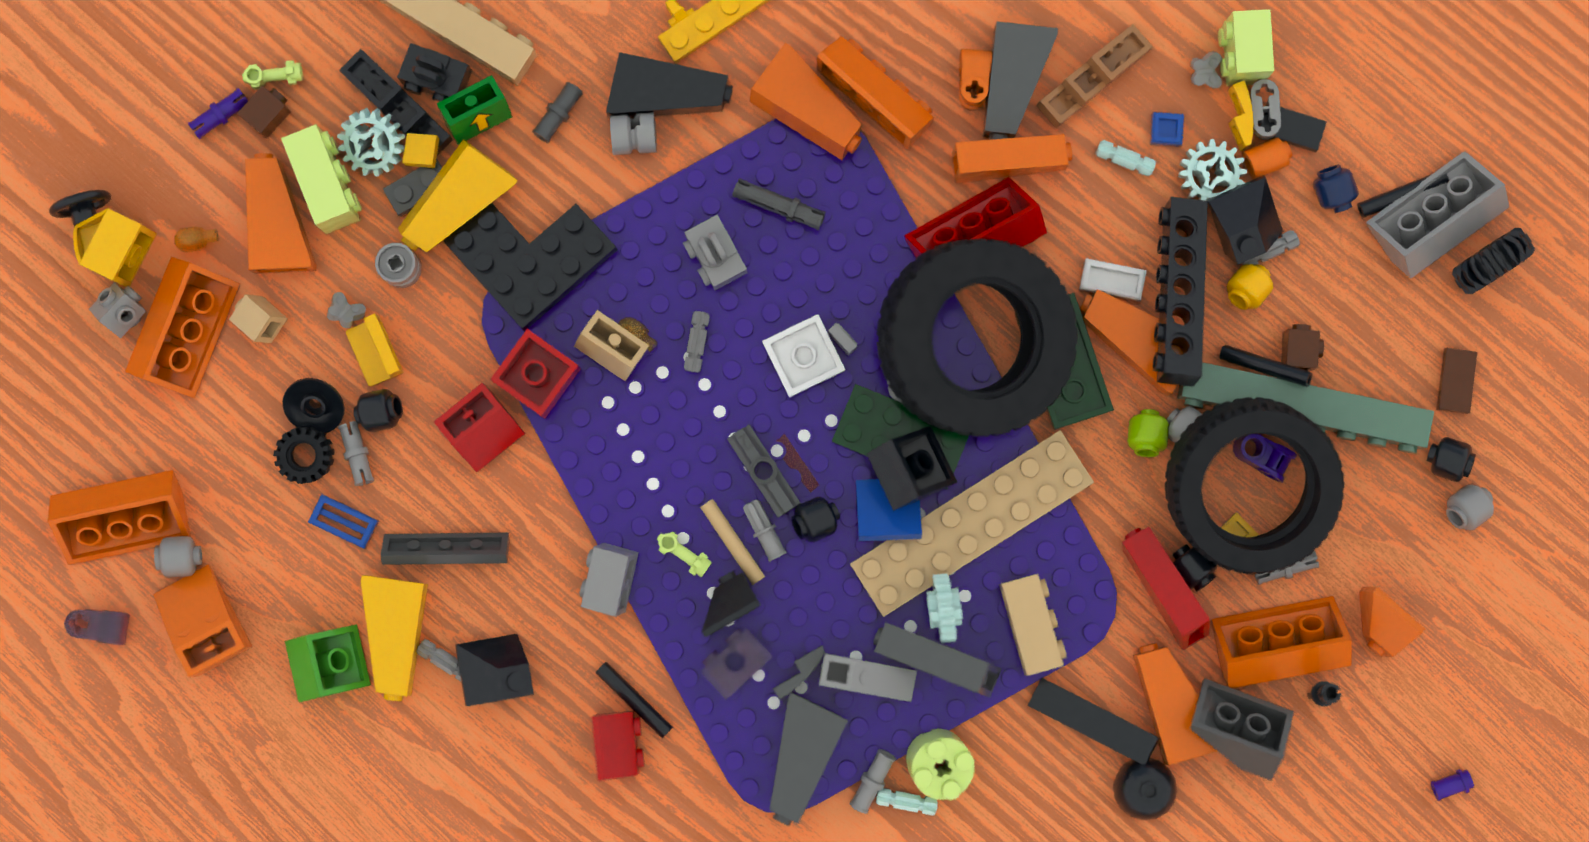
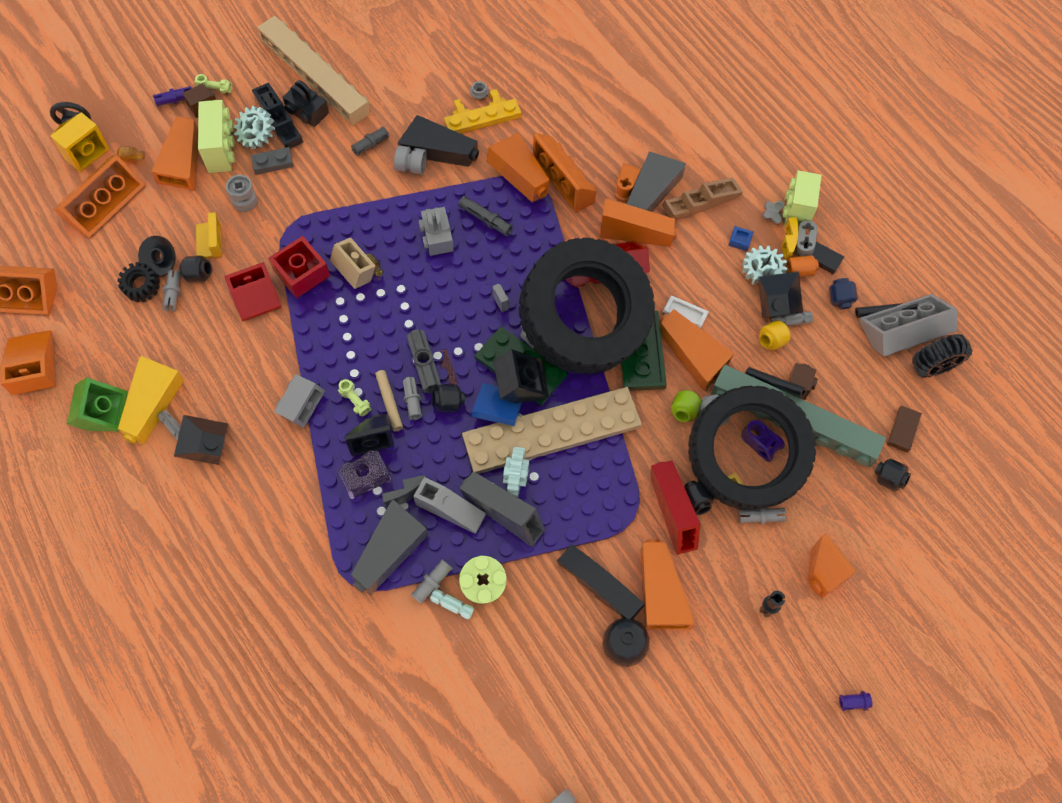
camera: 15 degrees right, 20 degrees down
(118, 309) = (62, 182): light grey brick -> none
(177, 556) = (33, 318): light grey head -> none
(258, 318) = (145, 200): tan brick -> none
(344, 312) = (198, 211): light grey piece -> none
(368, 532) = (157, 338): blue tile -> none
(420, 150) = (281, 138): yellow tile -> none
(445, 548) = (195, 356): dark grey plate -> none
(455, 196) = (292, 164): yellow slope -> none
(474, 109) = (320, 125): green brick -> none
(533, 275) = (319, 218): black plate -> none
(617, 745) = (262, 506): red slope -> none
(633, 699) = (288, 485): black piece -> none
(696, 341) = (408, 278): light grey axle -> none
(803, 355) = (472, 302): white plate -> none
(1032, 624) = (575, 503): tan brick -> none
(1125, 158) = (711, 247): light aqua axle -> none
(1190, 217) = (728, 324): black brick -> none
(1242, 727) = (707, 611): dark grey slope -> none
(1282, 642) = (749, 565): orange slope -> none
(1470, 507) = (900, 509): light grey head -> none

